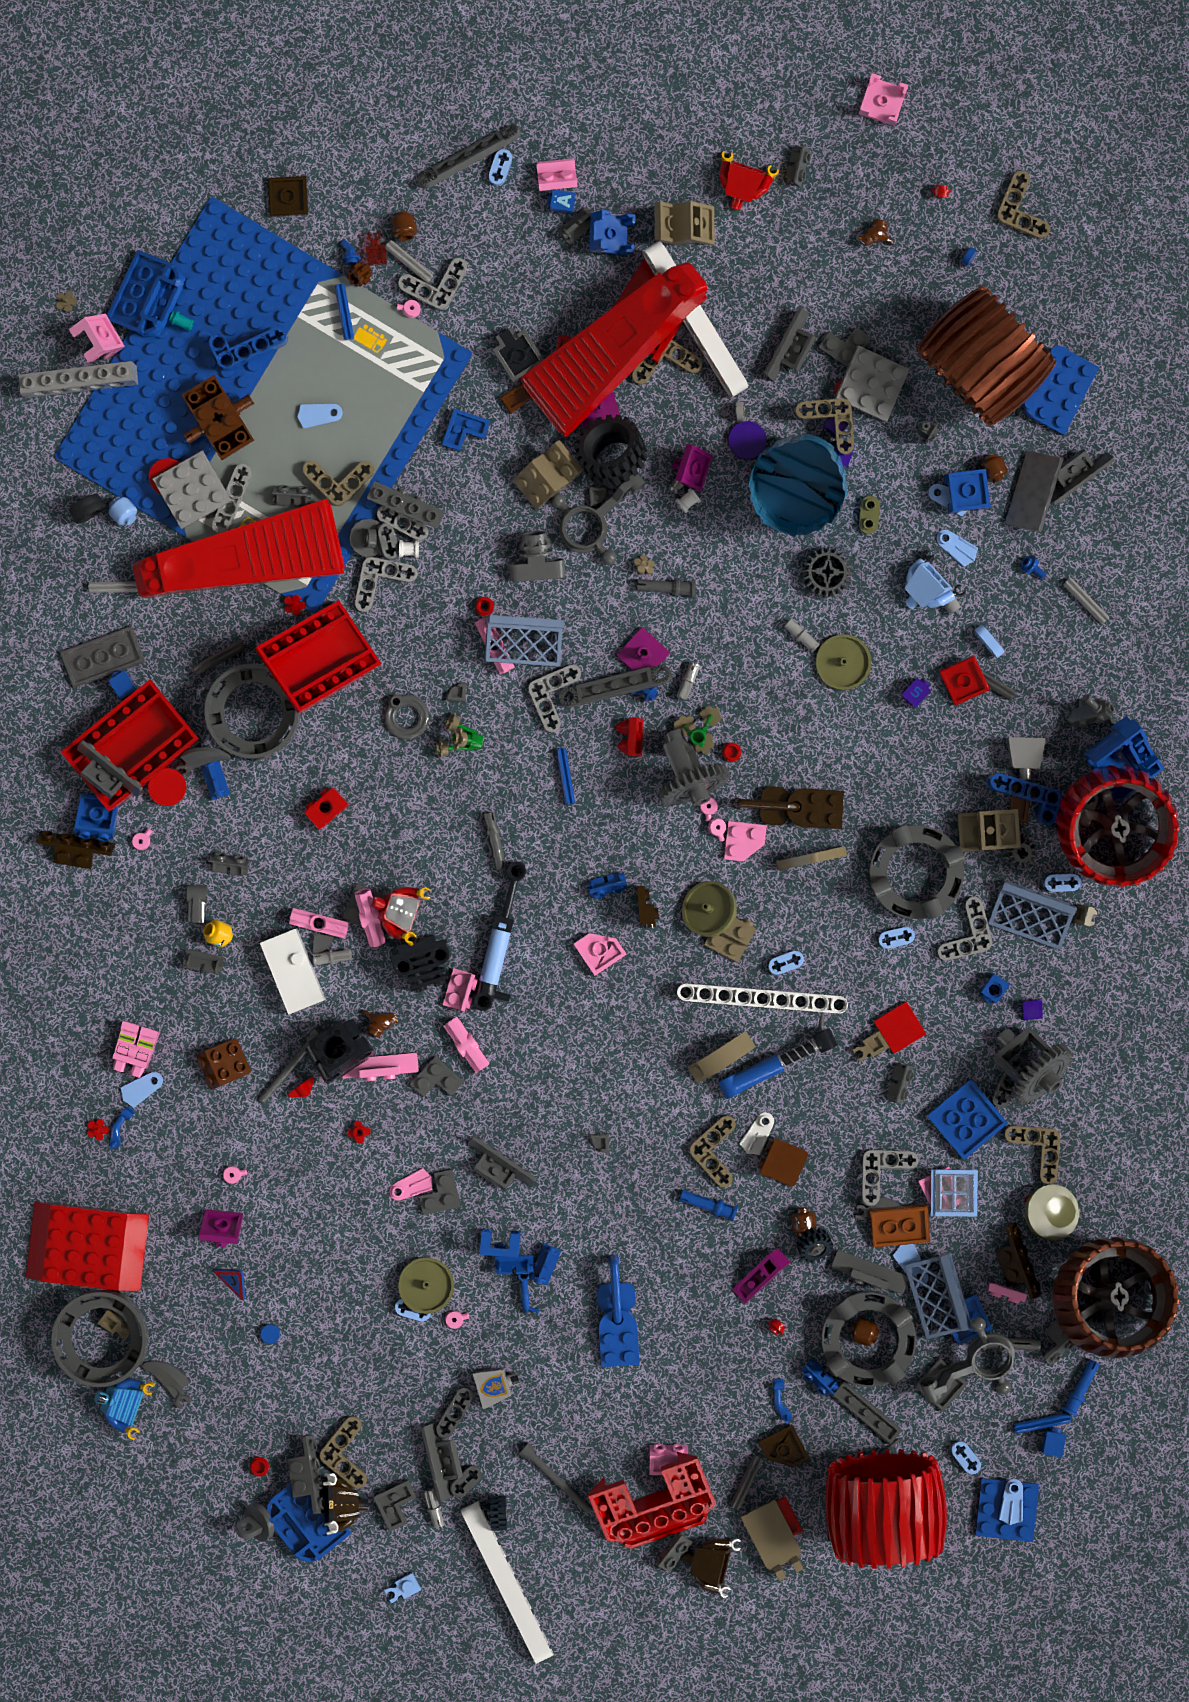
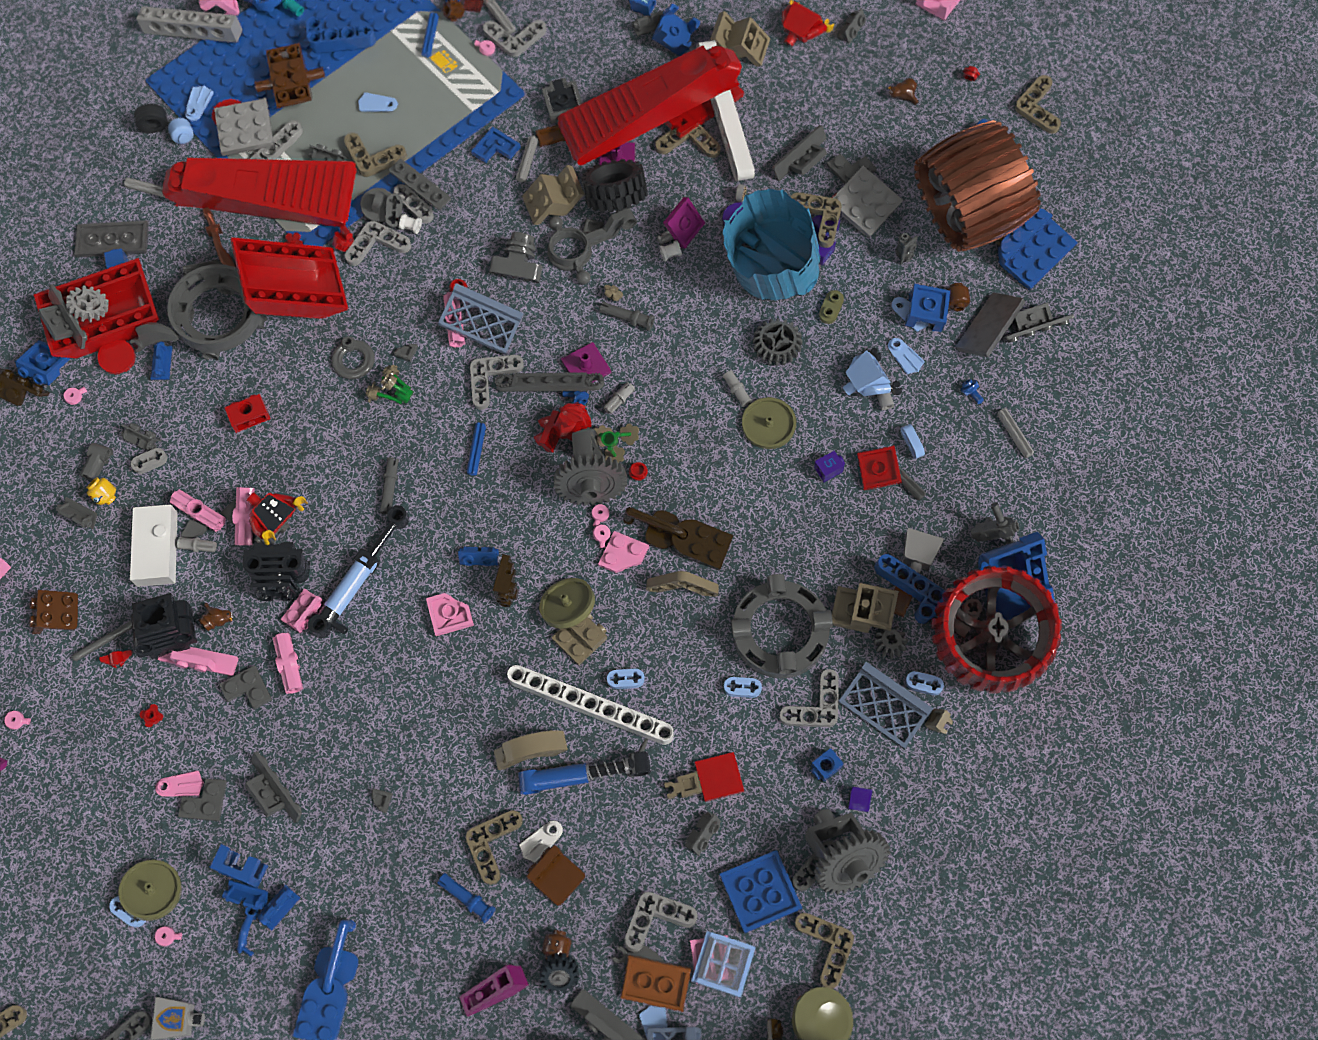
camera: 20 degrees right, 20 degrees down
(126, 470) = (197, 102): none -> light blue piece
(127, 742) = (87, 303): none -> light grey gear
(206, 616) = (214, 231): none -> copper sword
(251, 889) = (149, 461): none -> light grey beam
(346, 588) = (343, 239): none -> red piece
(502, 434) = (527, 159): none -> light grey axle
(654, 723) = (571, 419): none -> red hair

